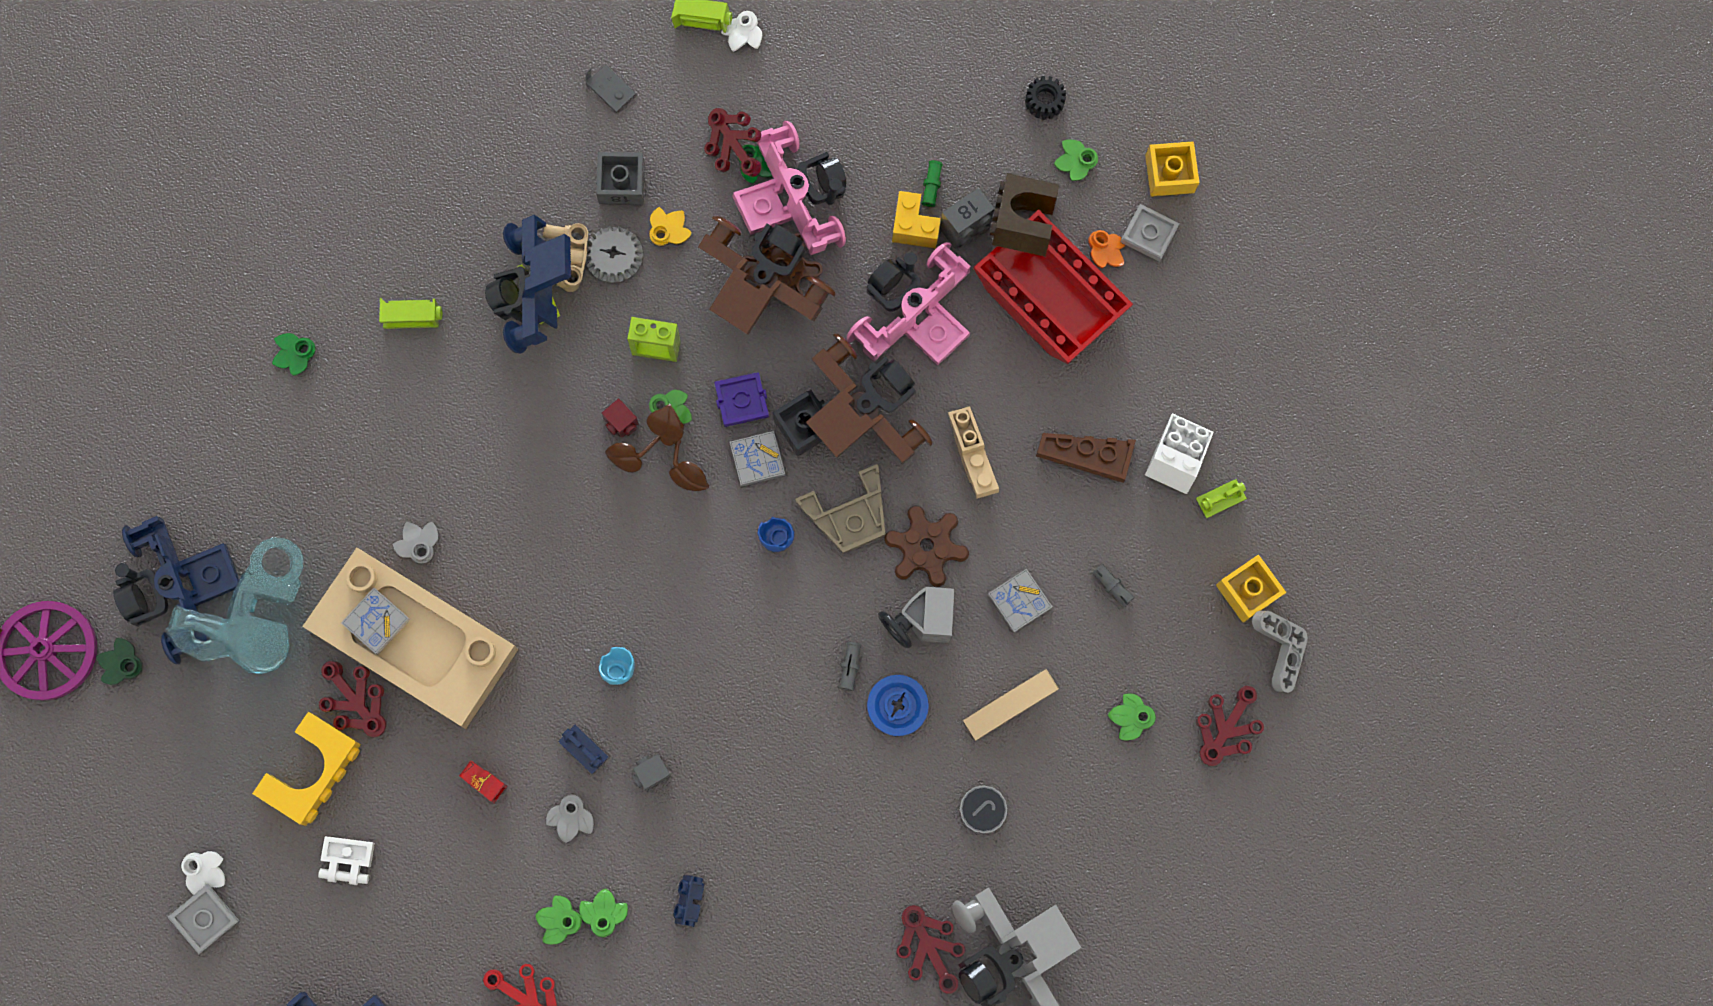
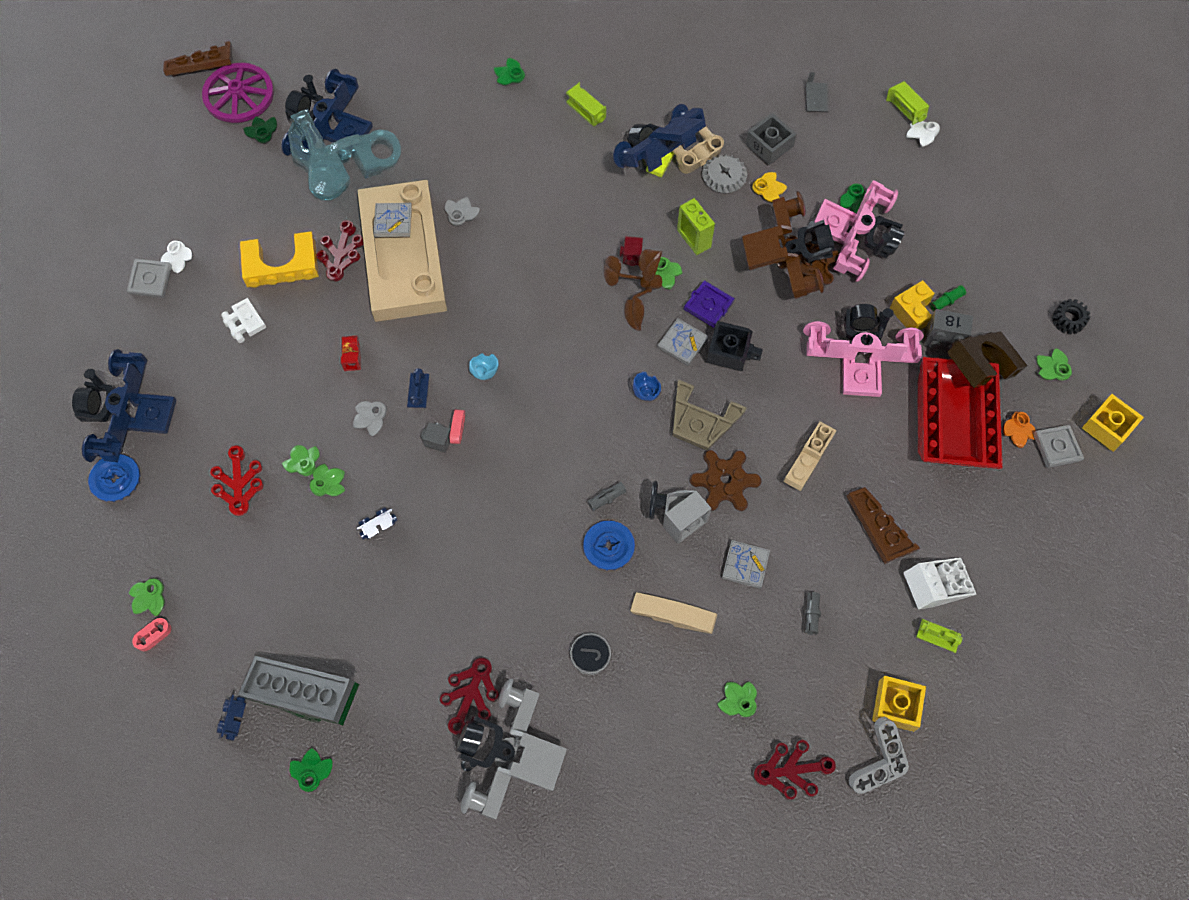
camera: 55 degrees right, 10 degrees down
(657, 743) = (457, 426): none -> coral beam
(731, 141) = (857, 161): dark red plant -> none
(838, 422) = (747, 359): reddish brown piece -> none

